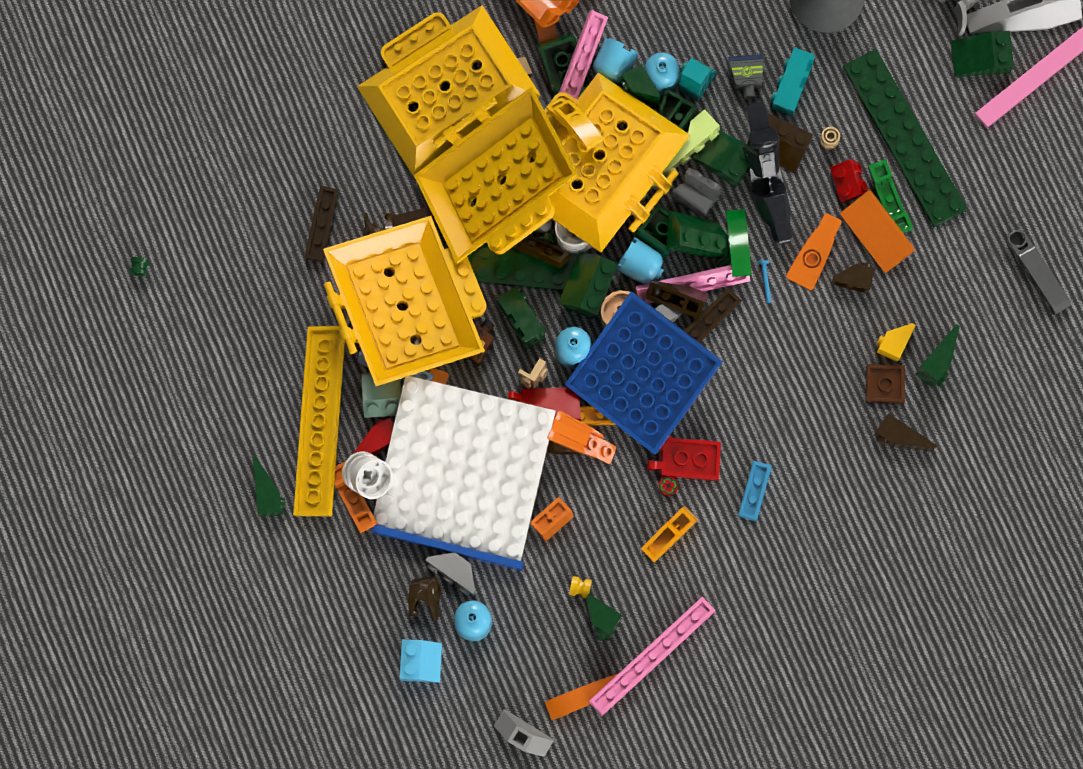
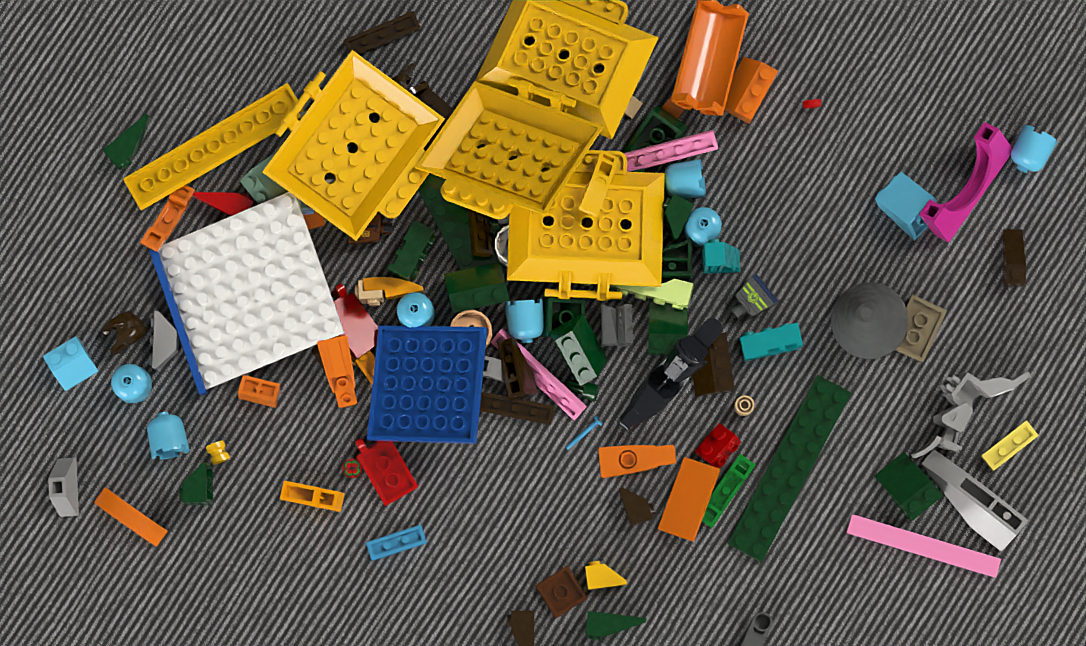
camera: 55 degrees right, 5 degrees up
(367, 475) = (191, 216): white wheel -> none
(538, 619) = (167, 436): none -> medium azure cylinder
(542, 350) = (391, 287): none -> light orange slope
(652, 656) = (199, 549): bright pink tile -> none
(738, 243) = (598, 388): green slope -> none

